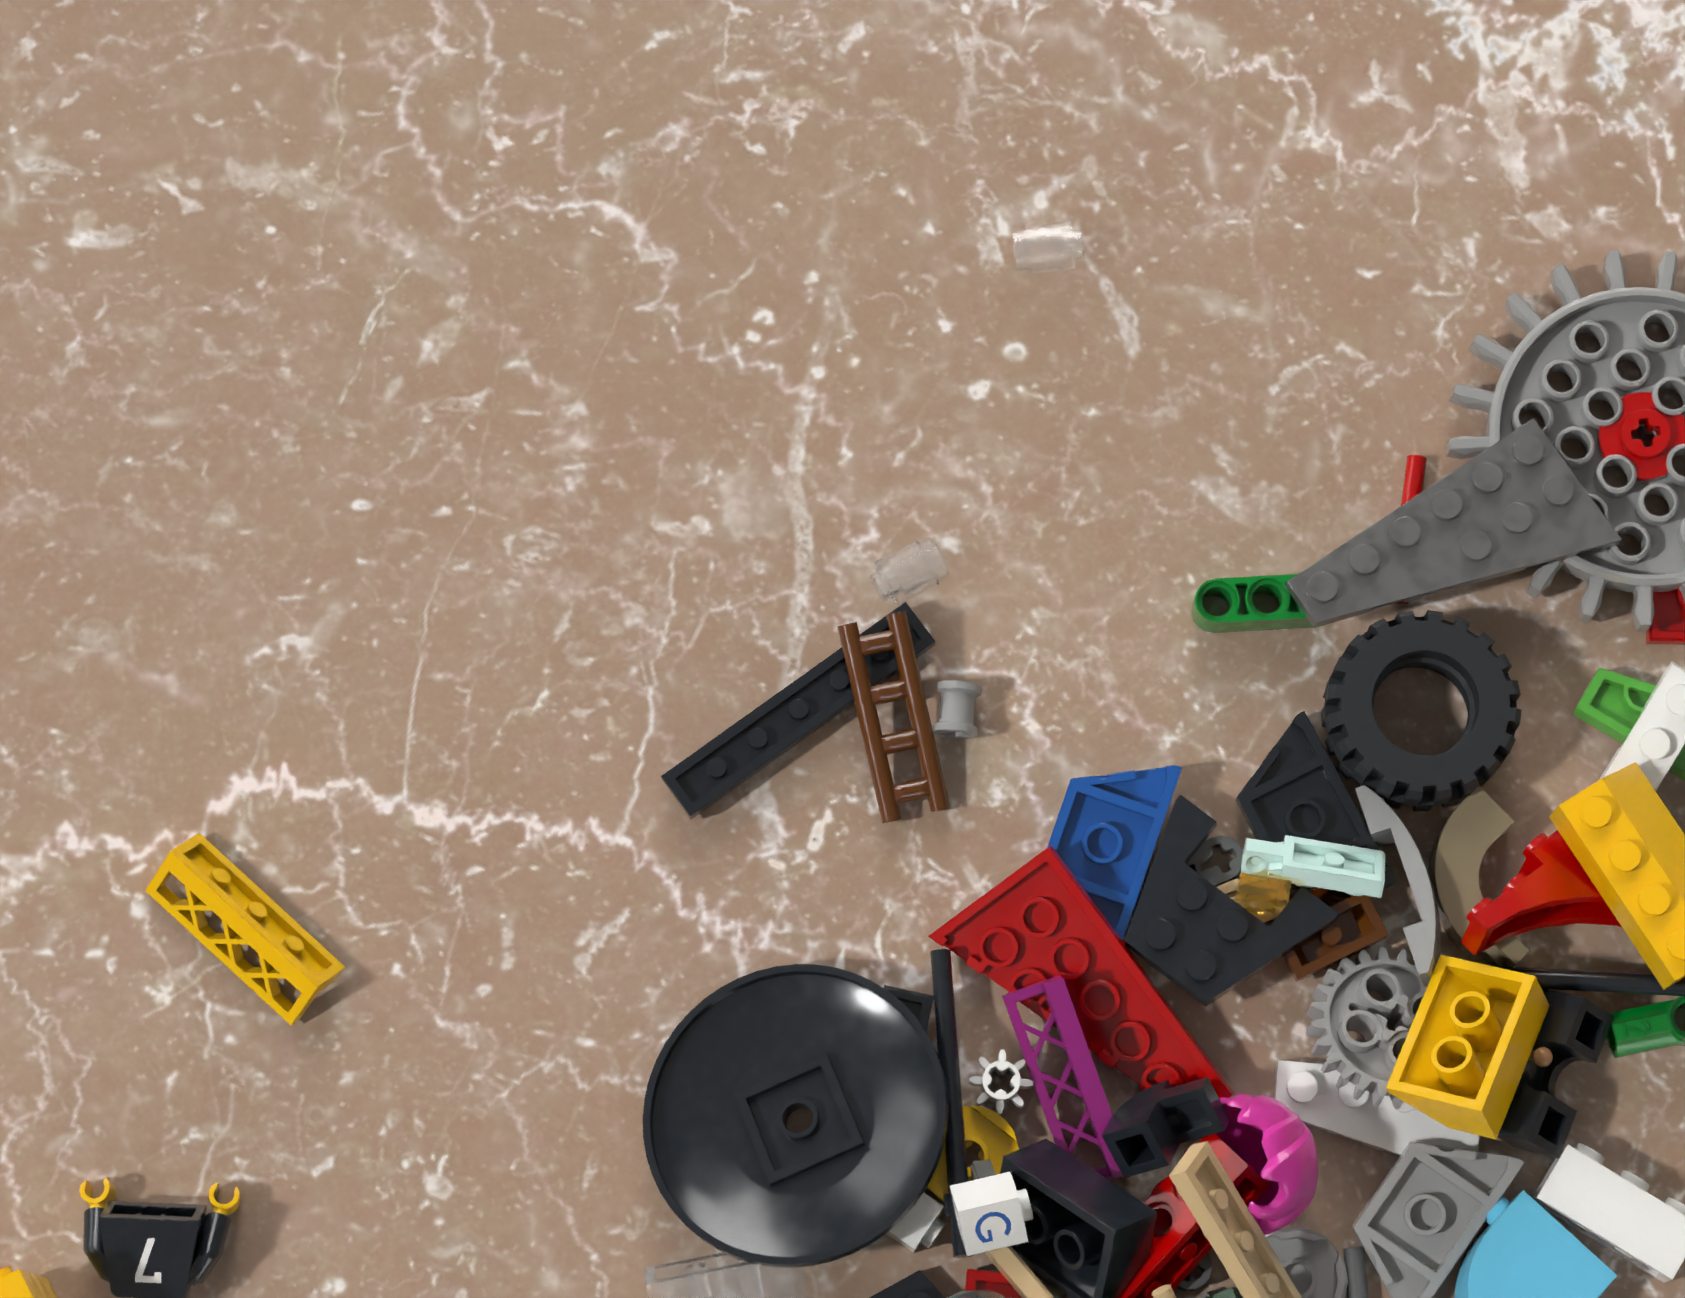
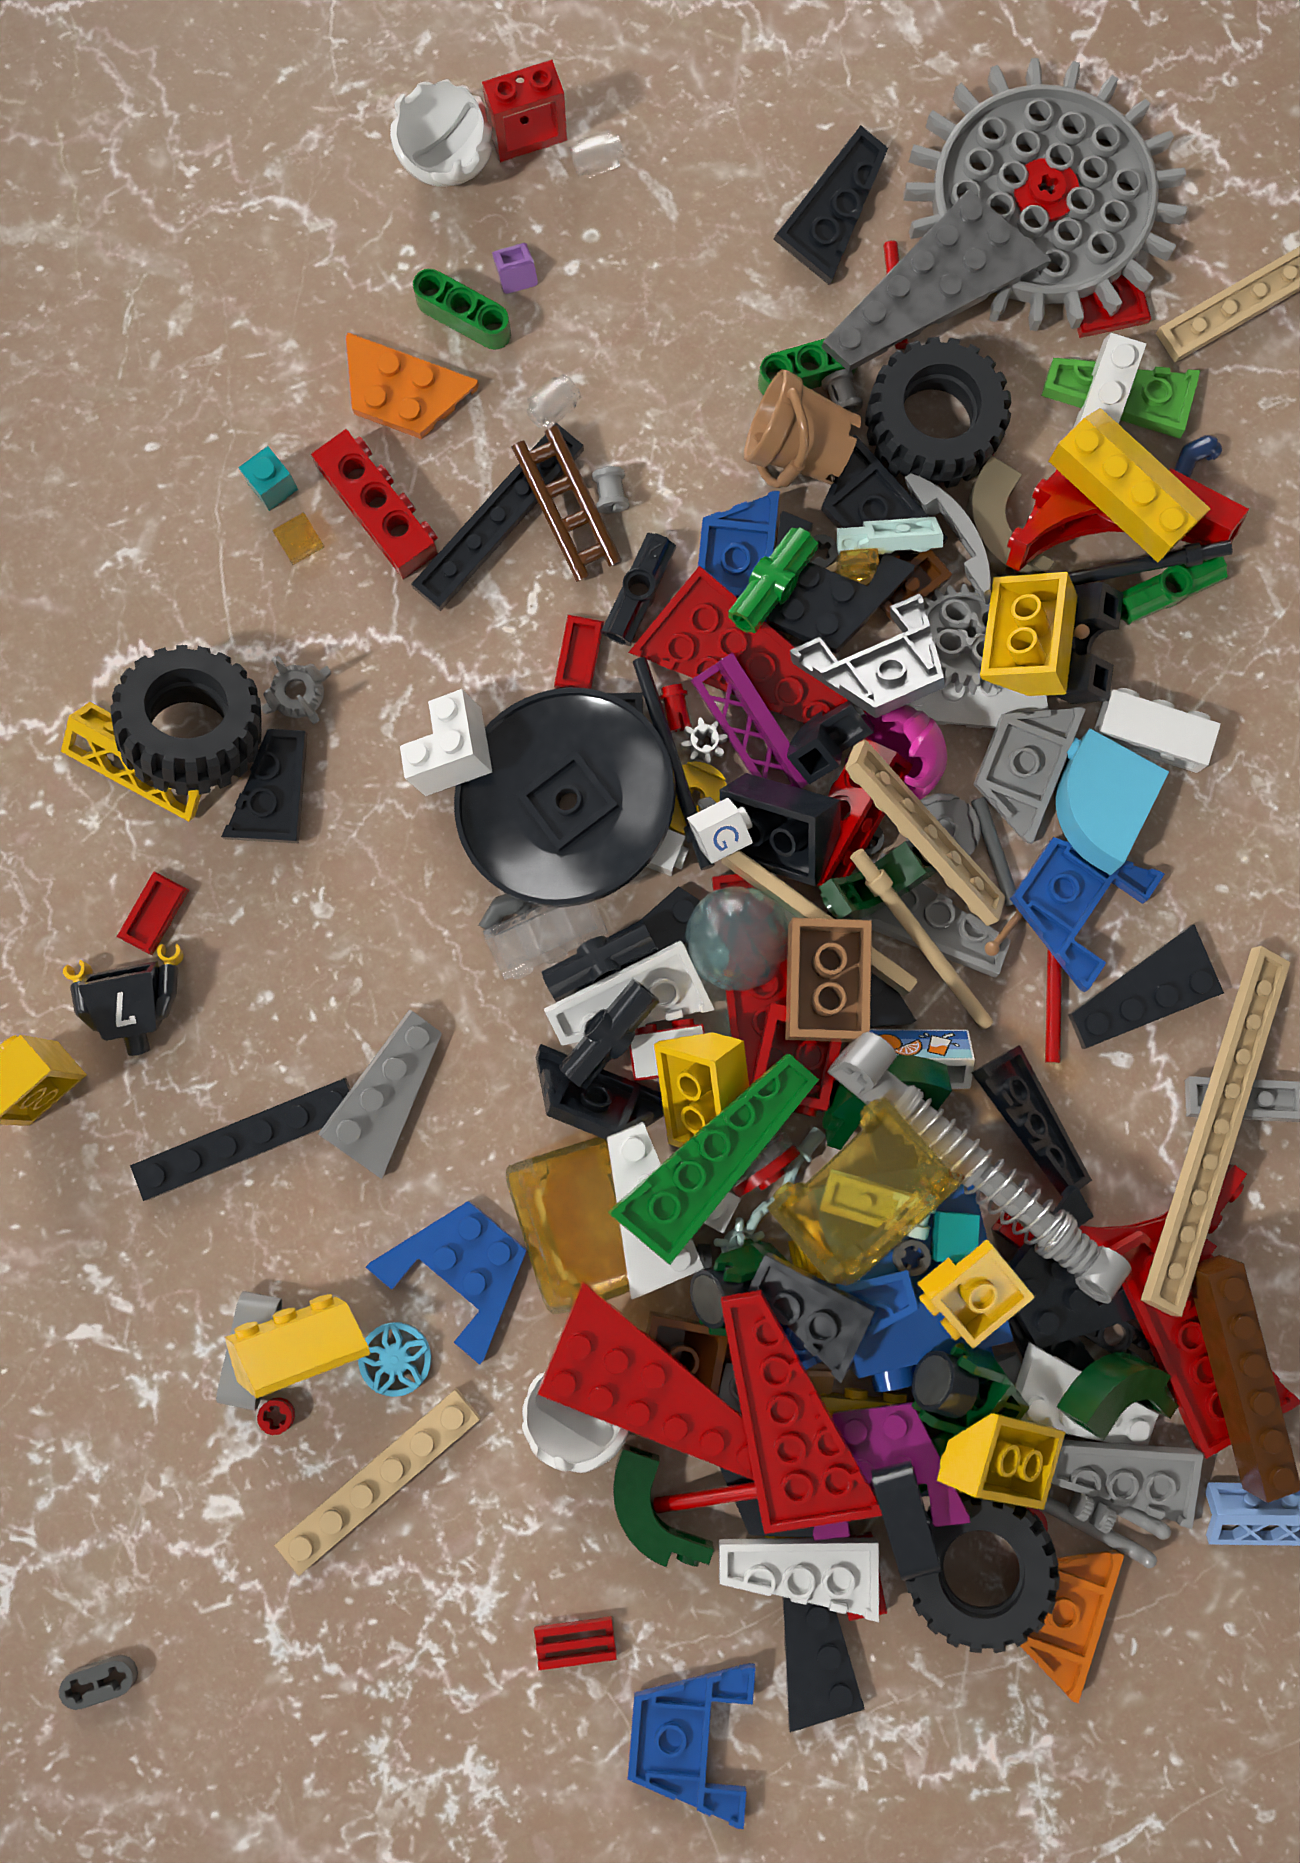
camera: 20 degrees left, 5 degrees up
(214, 1137) = (153, 913): none -> red tile
(338, 837) = (181, 678): none -> black tyre
(411, 1014) = (273, 794): none -> black wing
(474, 907) = (305, 705): none -> light grey piece
(506, 589) = (268, 478): none -> teal brick
(525, 676) = (298, 538): none -> clear yellow plate
(598, 589) = (335, 463): none -> red brick
(663, 1019) = (454, 750): none -> white brick
(674, 1242) = (501, 907): none -> dark grey arm
(712, 504) = (402, 388): none -> orange wing
(810, 396) = (452, 295): none -> green beam
(845, 183) = (441, 133): none -> white piece
(862, 921) = (579, 653): none -> red tile
(902, 374) = (515, 268): none -> medium lavender slope
(964, 185) = (532, 128): none -> red window
(974, 1026) = (675, 707): none -> red pin
(982, 828) = (648, 570): none -> black piece
(1141, 891) = (773, 580): none -> green piece
(1225, 698) = (799, 433): none -> medium nougat piece
(1261, 1055) = (885, 673): none -> wing
(1300, 650) = (842, 390): none -> light grey bush
(1341, 399) = (828, 213): none -> black wing

